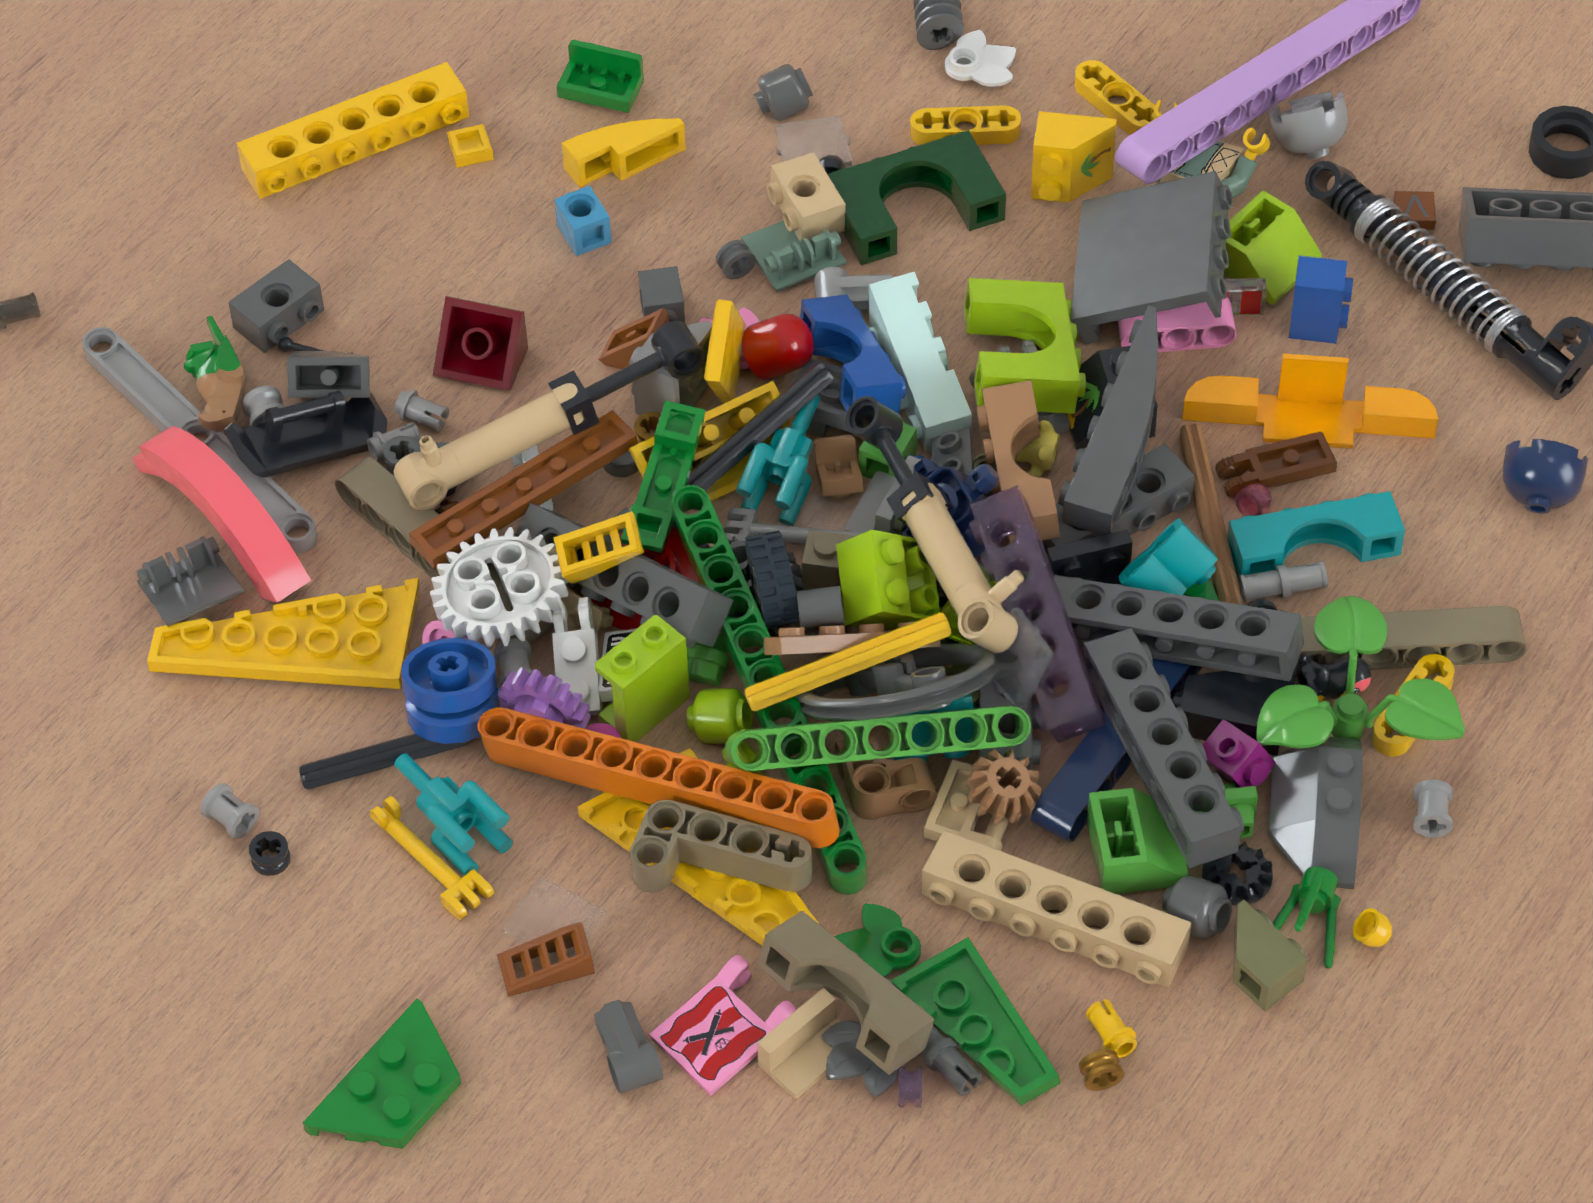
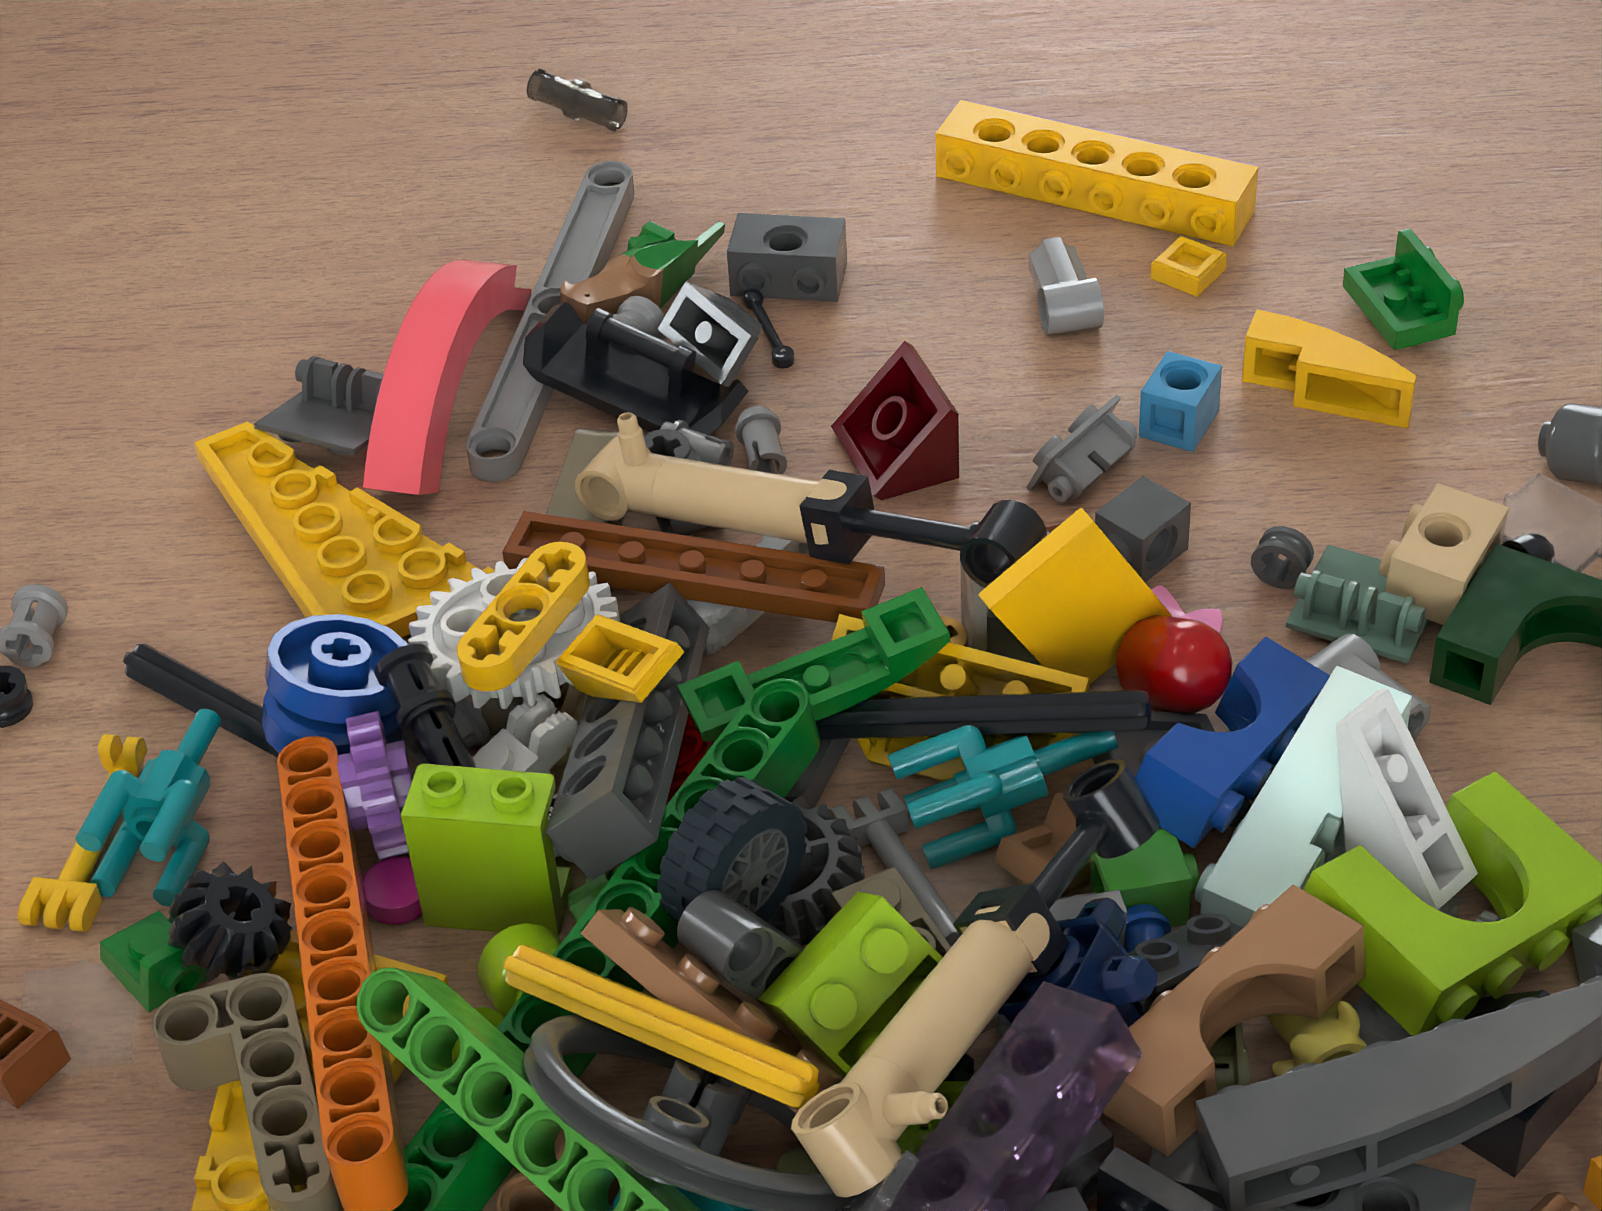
camera: 55 degrees right, 10 degrees down
(447, 212) = (1065, 294): none -> light grey piece
(519, 585) = (523, 640): none -> yellow beam
(535, 651) = (423, 705): none -> black pin
(557, 866) = (147, 964): none -> green bracket
(571, 275) = (1066, 462): none -> light grey hinge
(592, 809) = (229, 923): none -> black gear
(964, 327) = (1394, 804): none -> white slope

